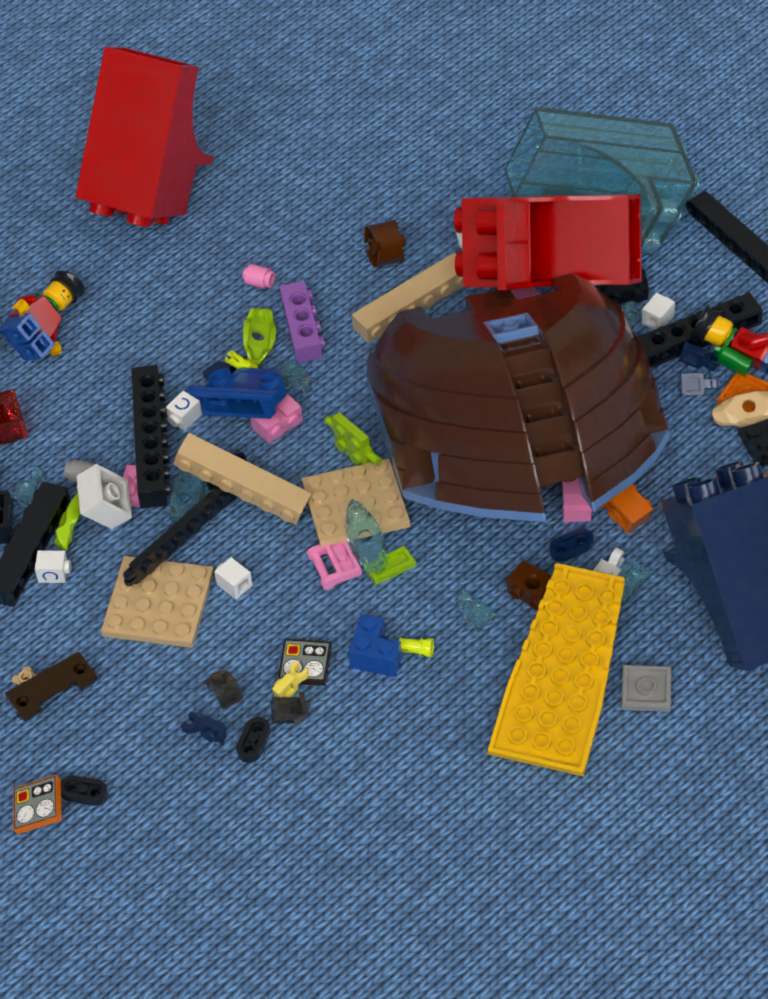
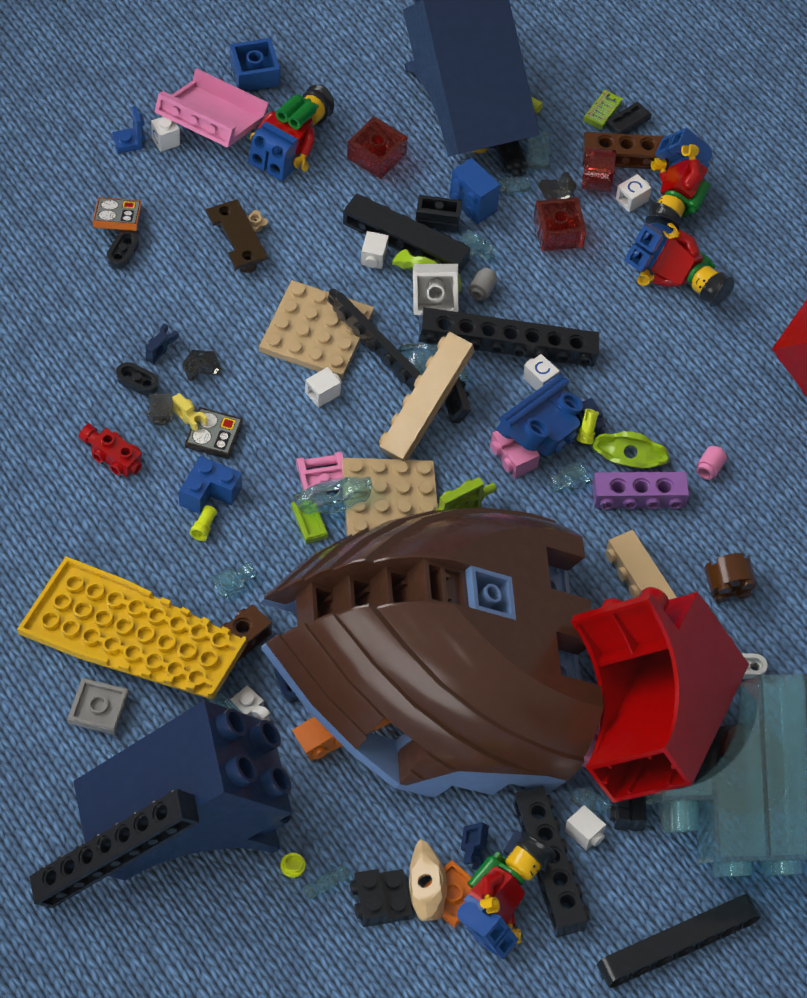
camera: 90 degrees right, 5 degrees up
(353, 728) = (113, 450): none -> red brick

